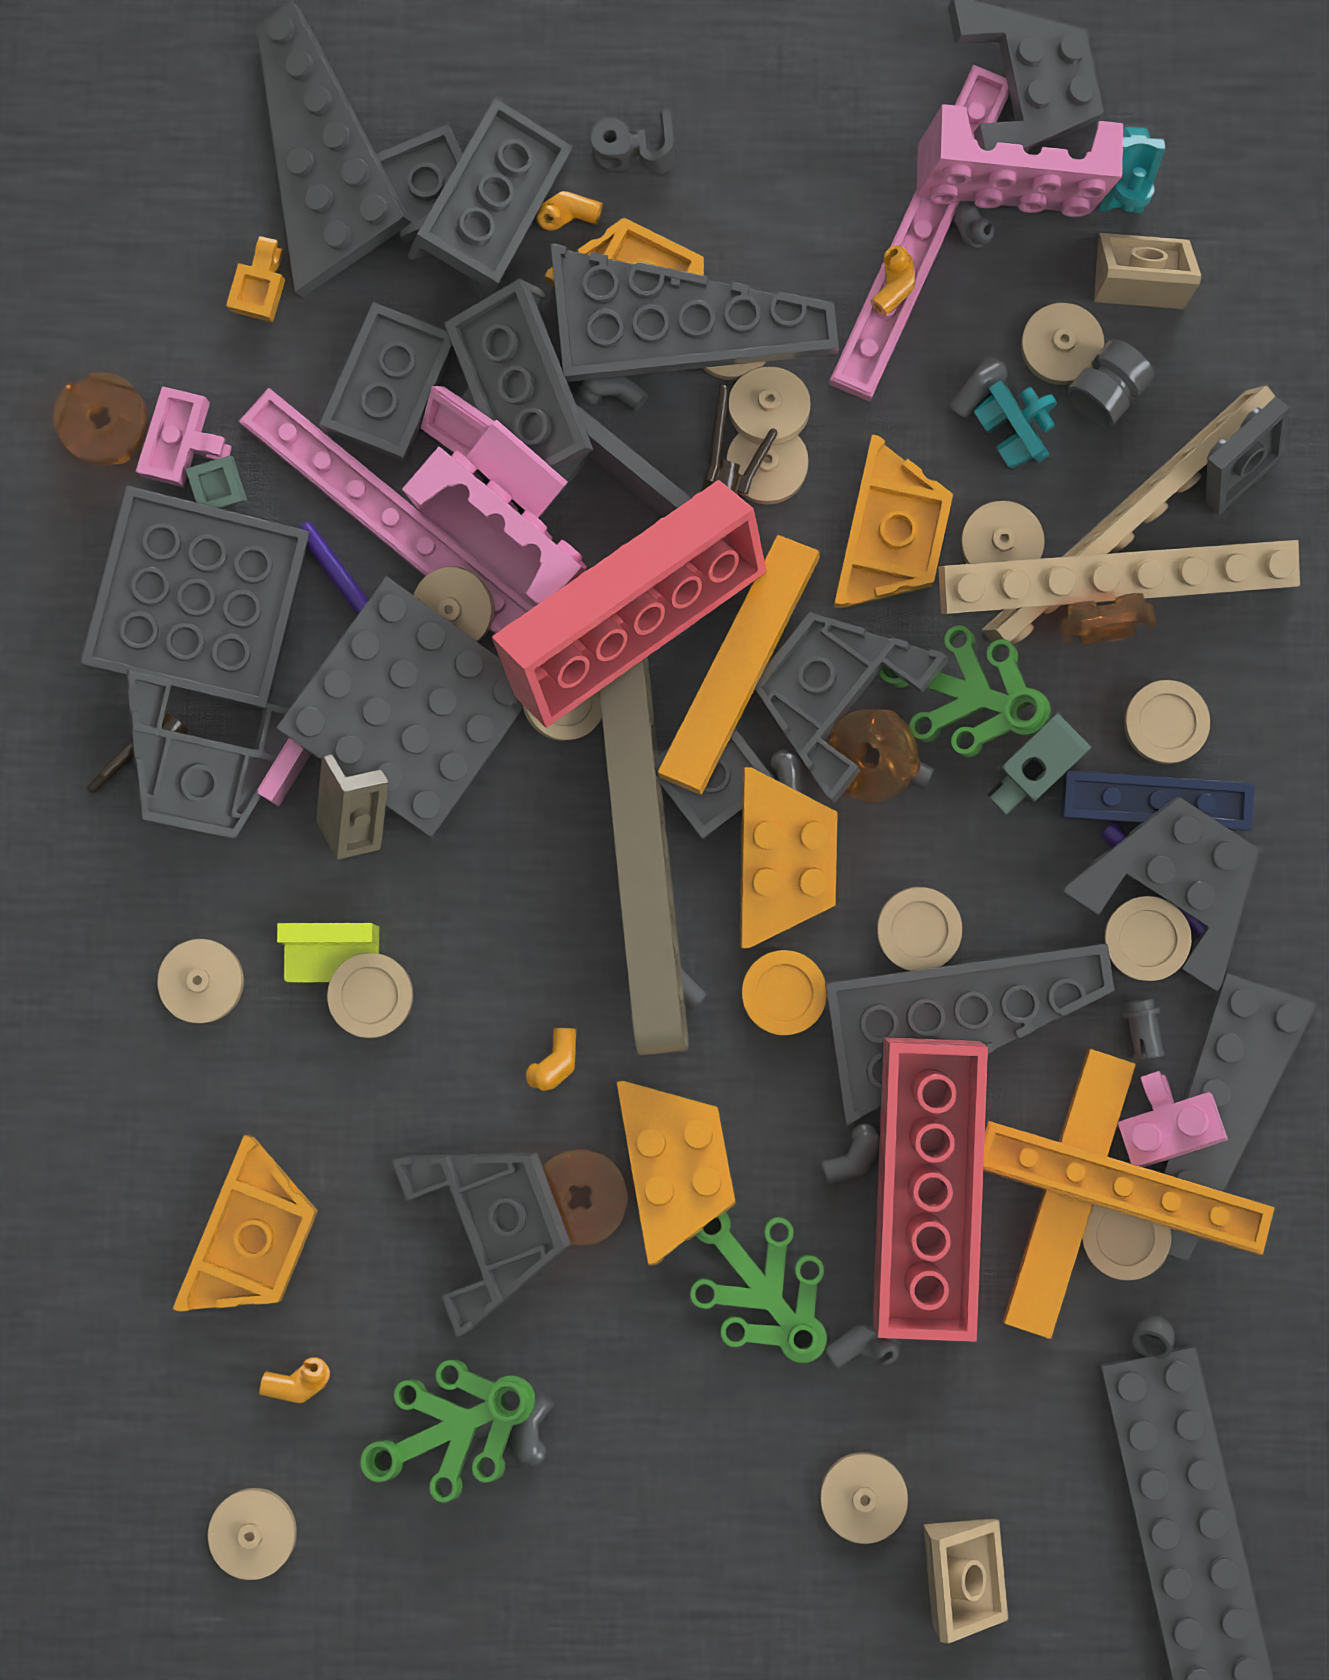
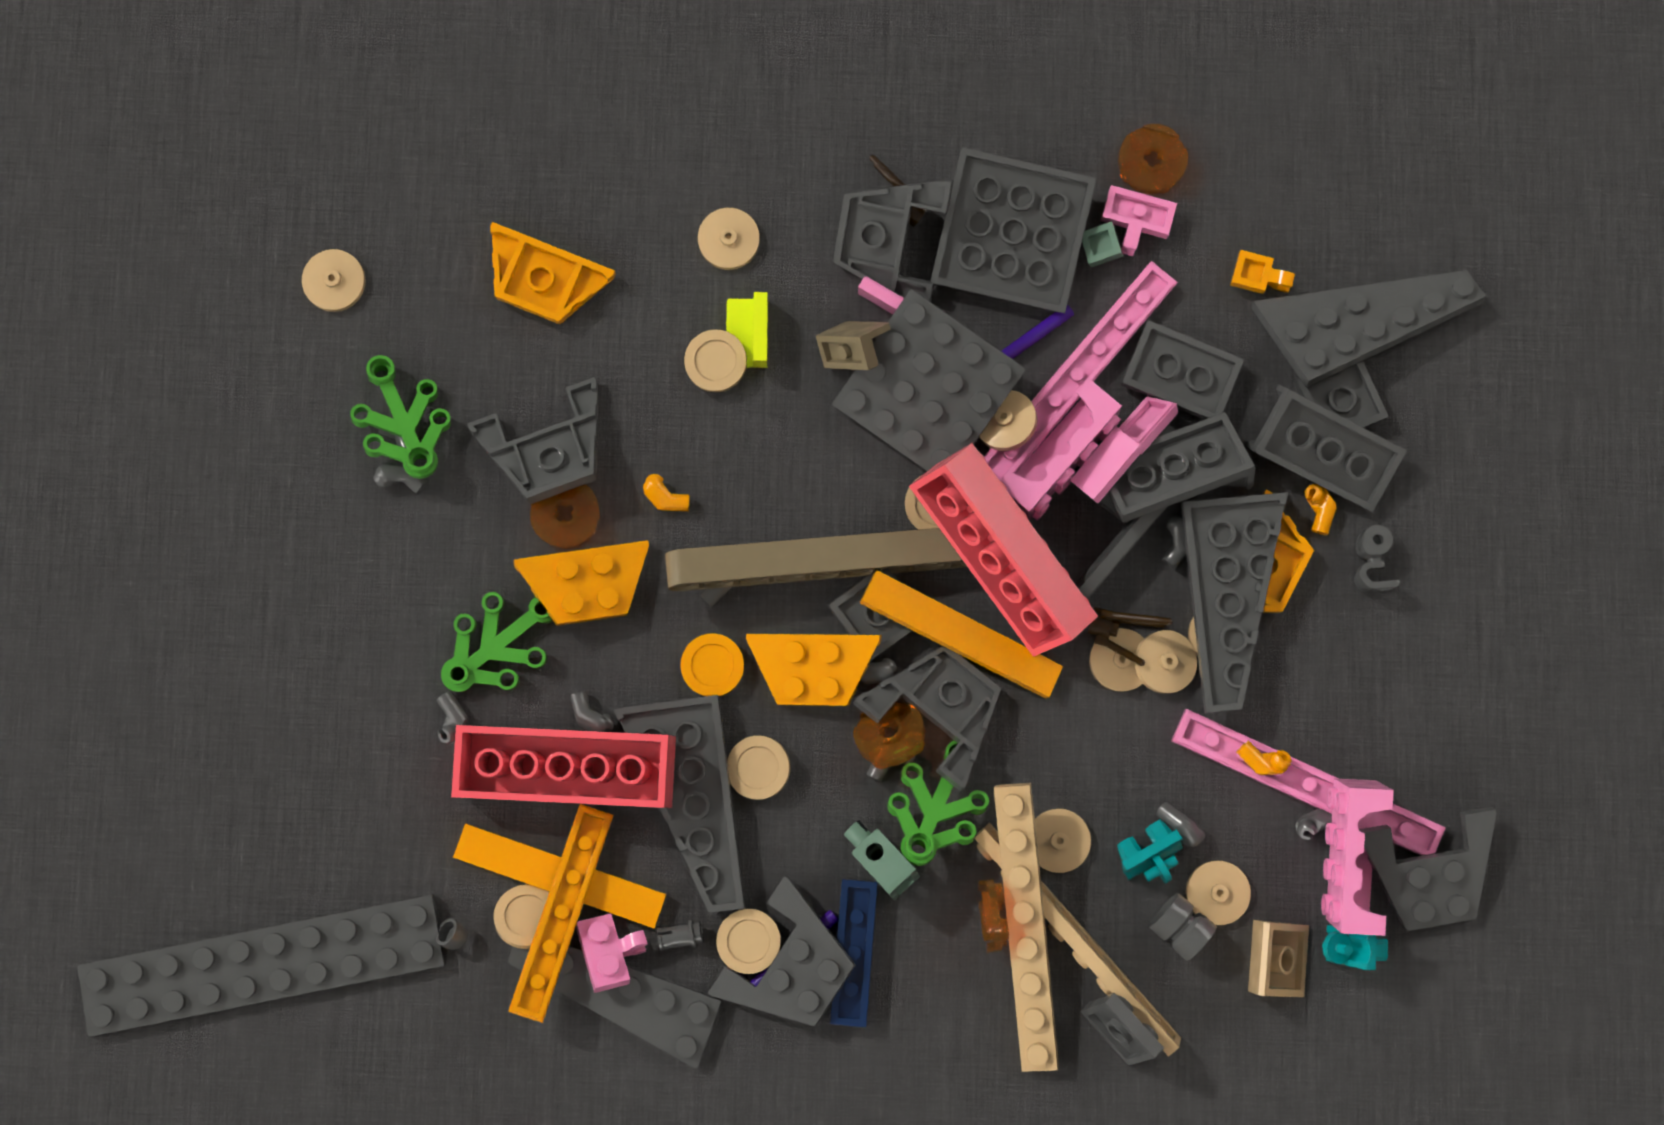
camera: 80 degrees right, 0 degrees up
(298, 1386) = (435, 311): light orange arm -> none
(863, 1497) = (343, 717): tan piece -> none
(893, 530) = (1066, 754): light orange wing -> none
(965, 1577) = (284, 789): tan slope -> none
(1167, 722) = (915, 962): tan piece -> none

